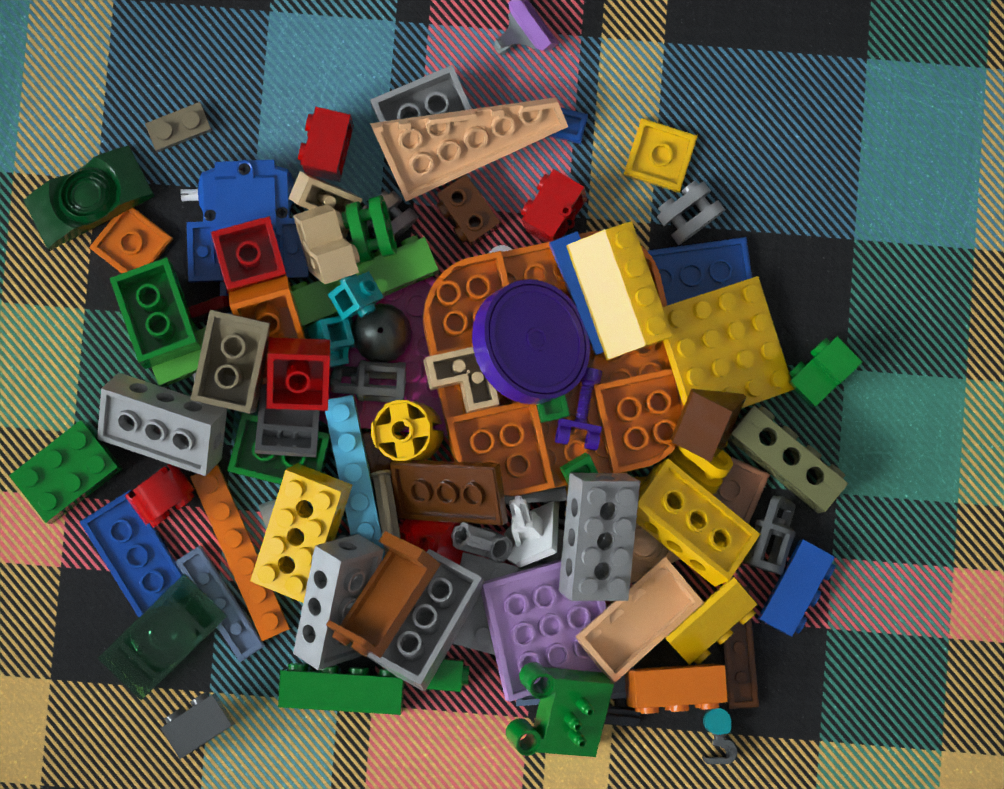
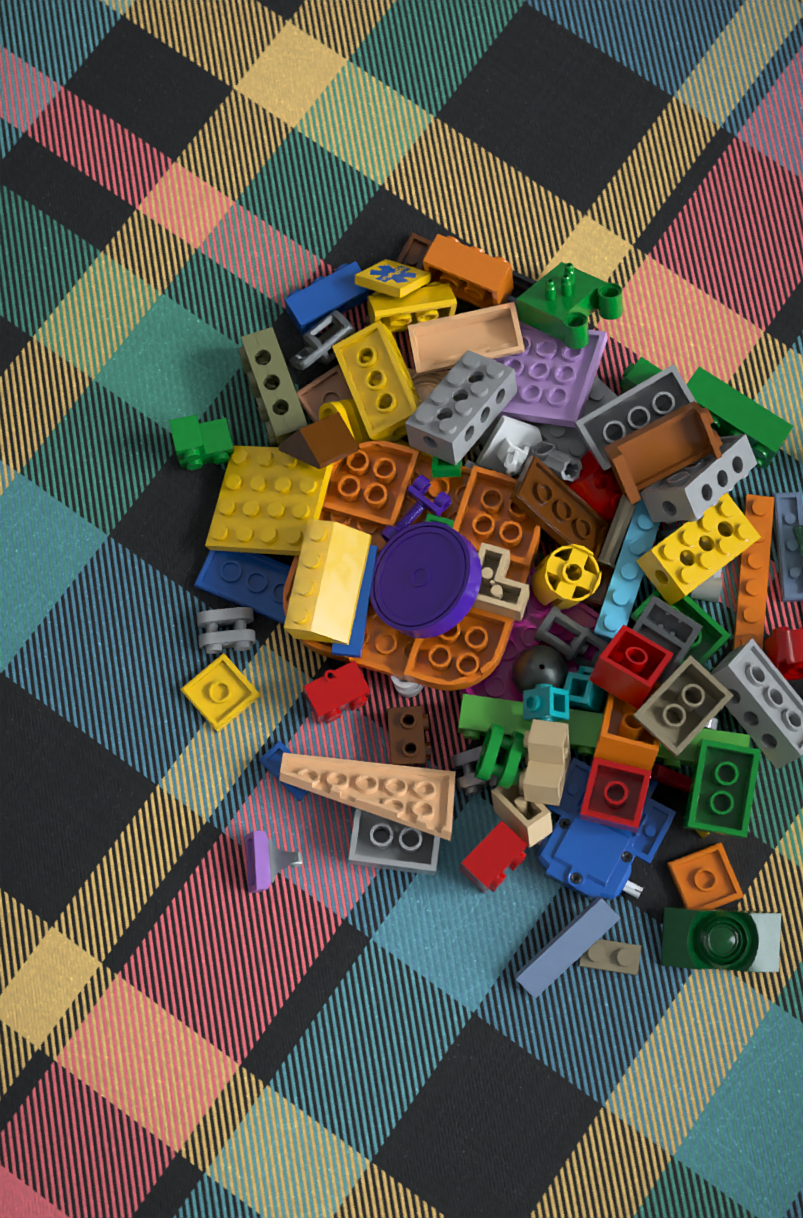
camera: 150 degrees left, 10 degrees down
(218, 108) = (567, 947): none -> sand blue tile
(719, 724) = (455, 224): leg -> none
(744, 636) = (392, 278): none -> yellow tile

